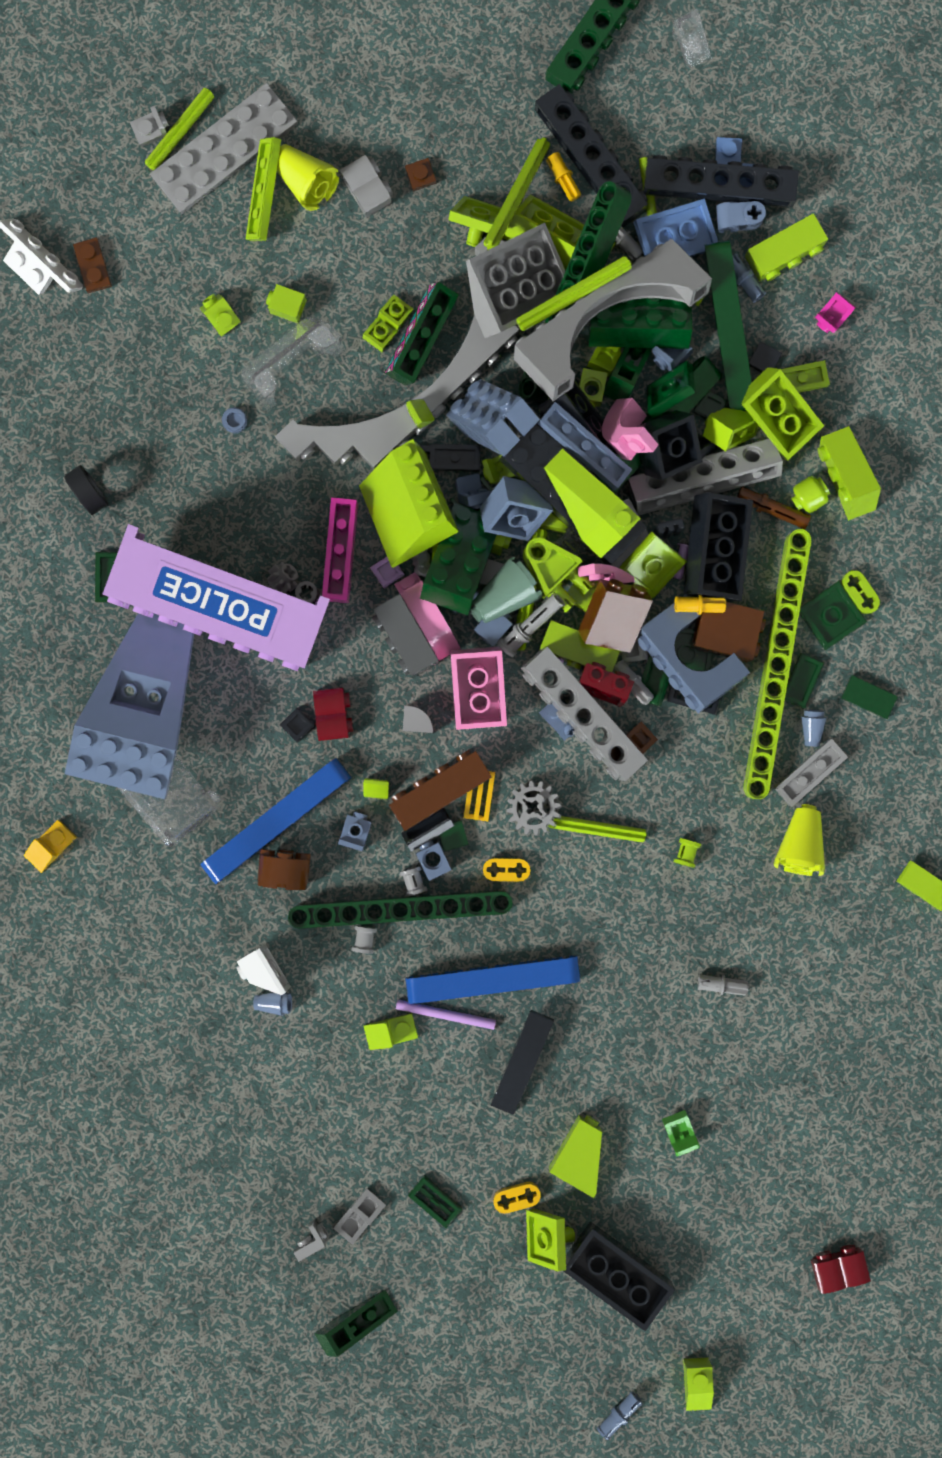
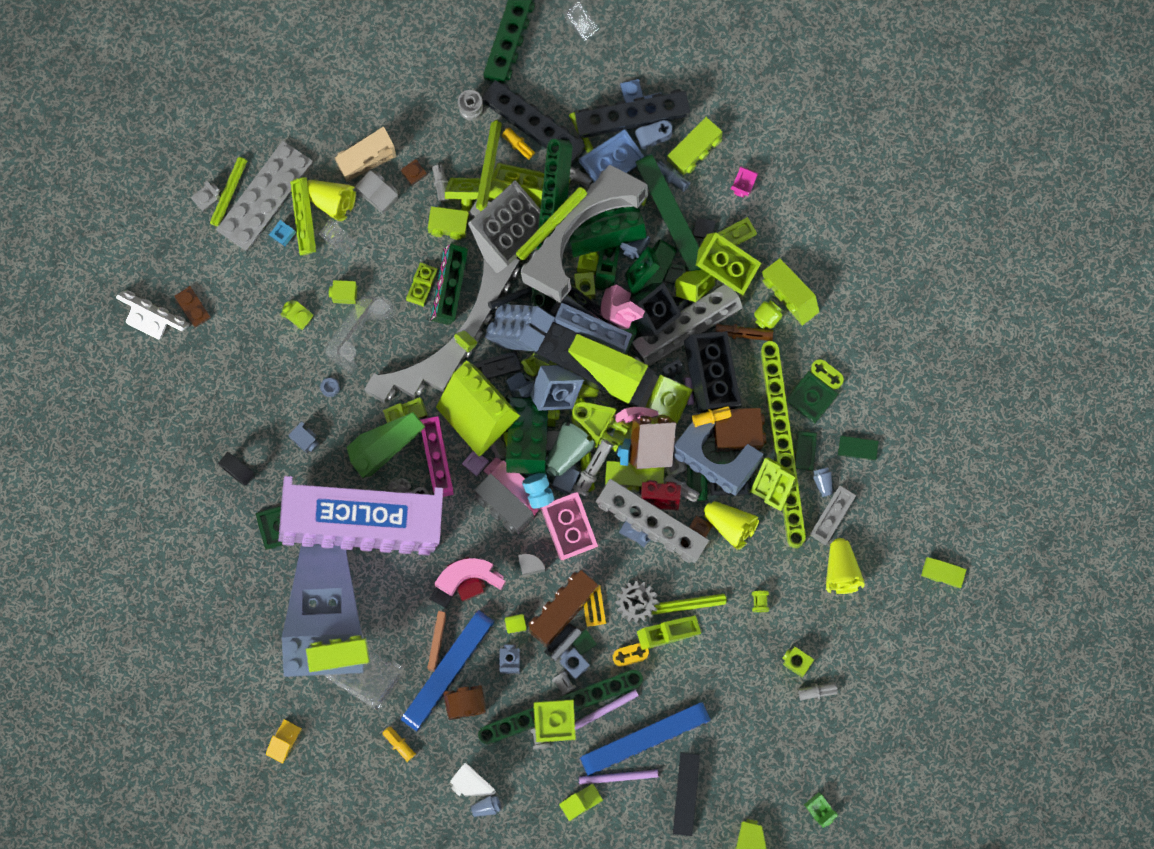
camera: 15 degrees left, 10 degrees down
(136, 769) = (337, 653): none -> lime brick
(183, 476) = (304, 438): none -> sand blue brick
(189, 892) = (398, 743): none -> yellow axle
(231, 204) = (282, 233): none -> dark azure plate
(272, 781) = (437, 640): none -> nougat tile
(273, 513) = (380, 444): none -> bright green wedge
(298, 231) = (337, 238): none -> clear slope
(318, 481) = (400, 410): none -> lime slope
(324, 705) = (465, 569): none -> bright pink arch
(366, 132) = (366, 154): none -> tan wedge
(386, 927) = (554, 720): none -> lime plate
(444, 253) = (448, 222): none -> lime brick
(450, 197) = (440, 182): none -> light grey axle
(450, 928) = (605, 709): none -> lavender bar
(453, 630) = (536, 487): none -> medium azure wheel
(492, 374) = (510, 297): none -> black bar
(518, 114) = (470, 109): none -> light grey wheel
(561, 857) = (668, 632): none -> lime slope
(576, 616) = (624, 452): none -> dark azure plate
(681, 744) = (731, 523): none -> neon yellow cone
(717, 949) = (806, 661): none -> lime brick
(750, 712) = (773, 483): none -> lime slope

